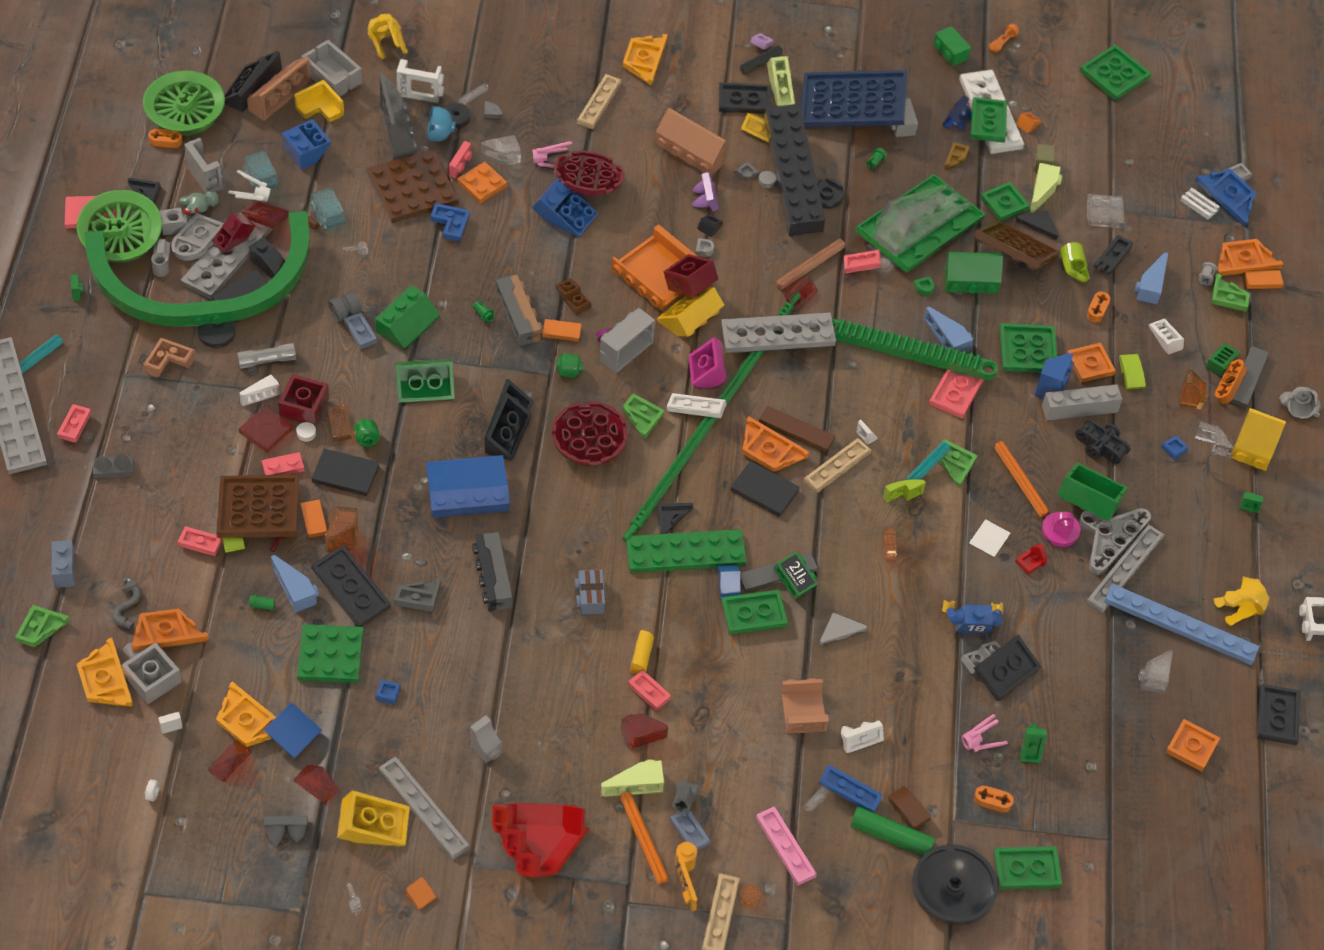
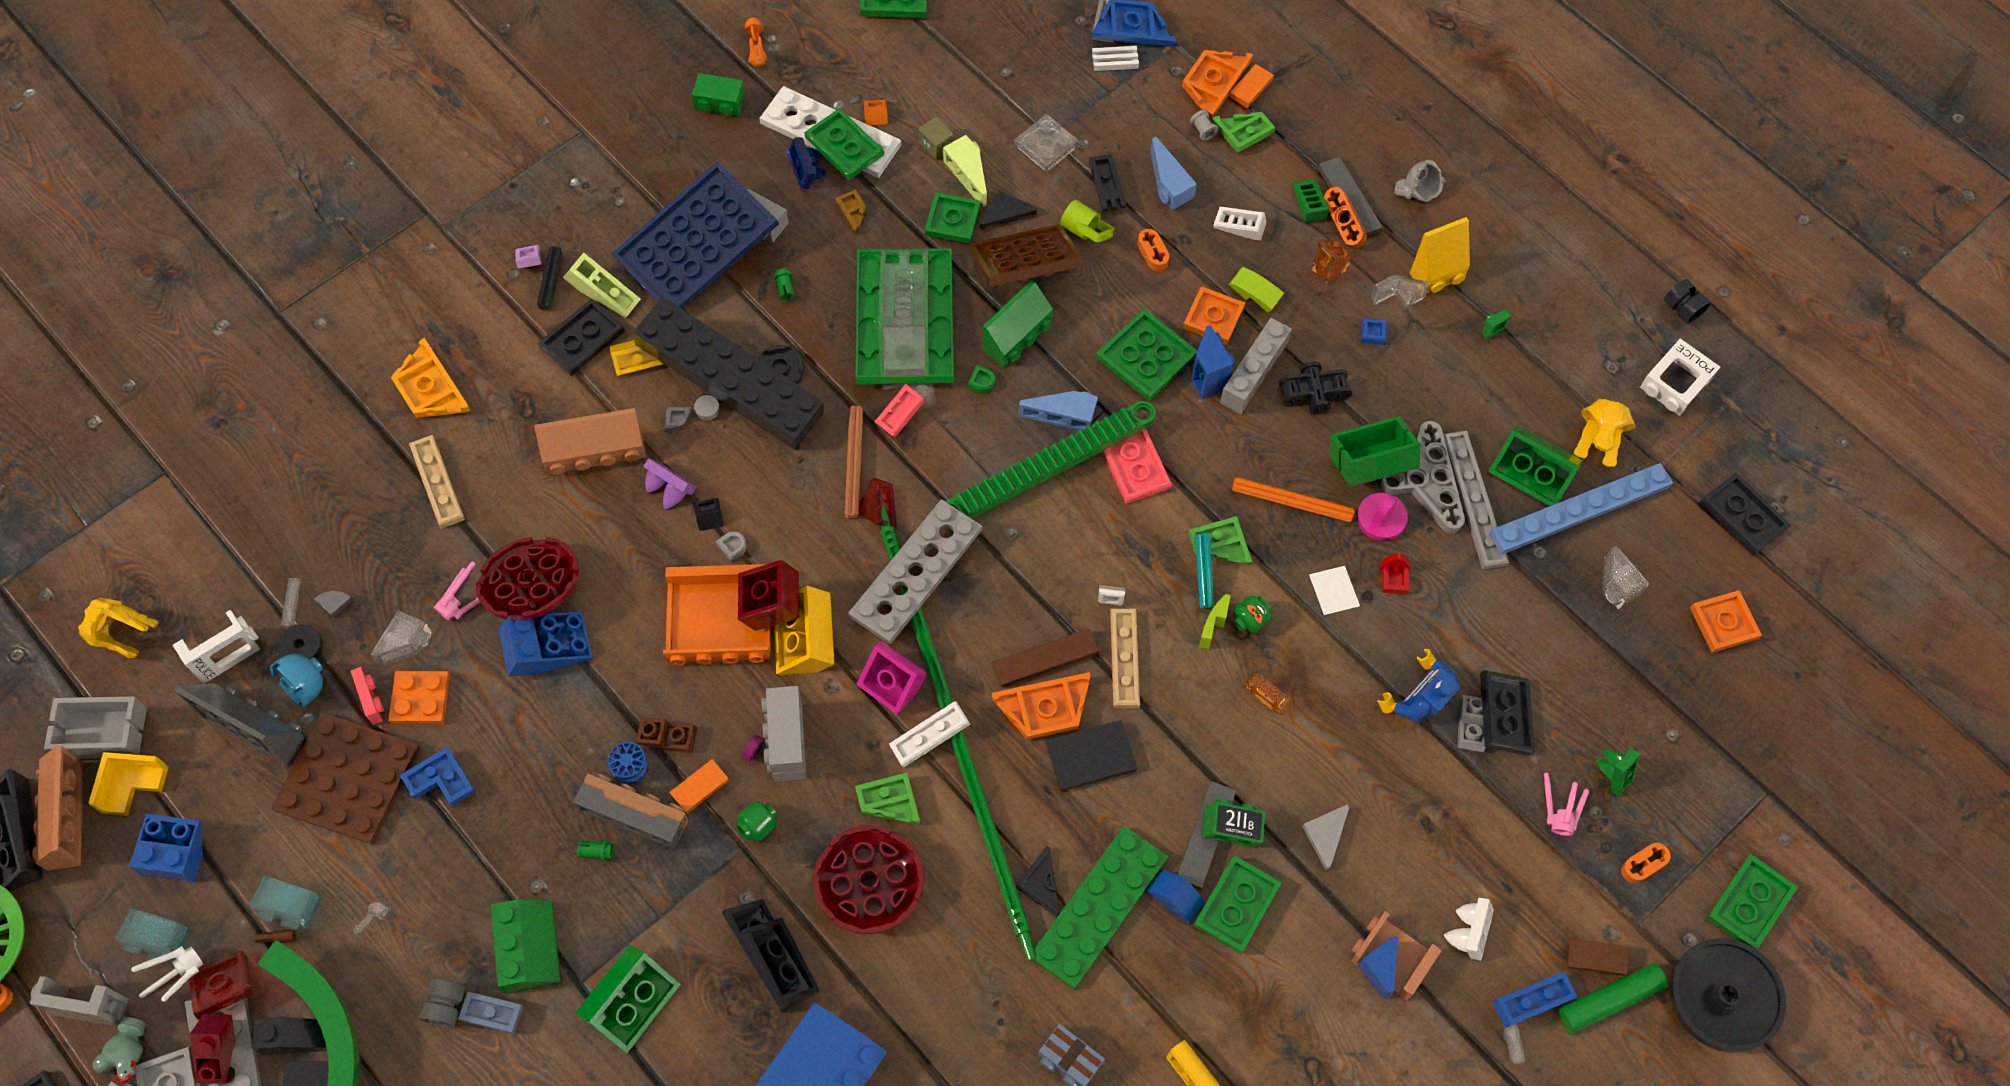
camera: 45 degrees left, 10 degrees up
(535, 290) = (628, 763): none -> blue wheel
(792, 700) = (1381, 967): none -> blue slope
(927, 503) = (1252, 614): none -> green head
(1181, 581) = (1535, 466): none -> green slope

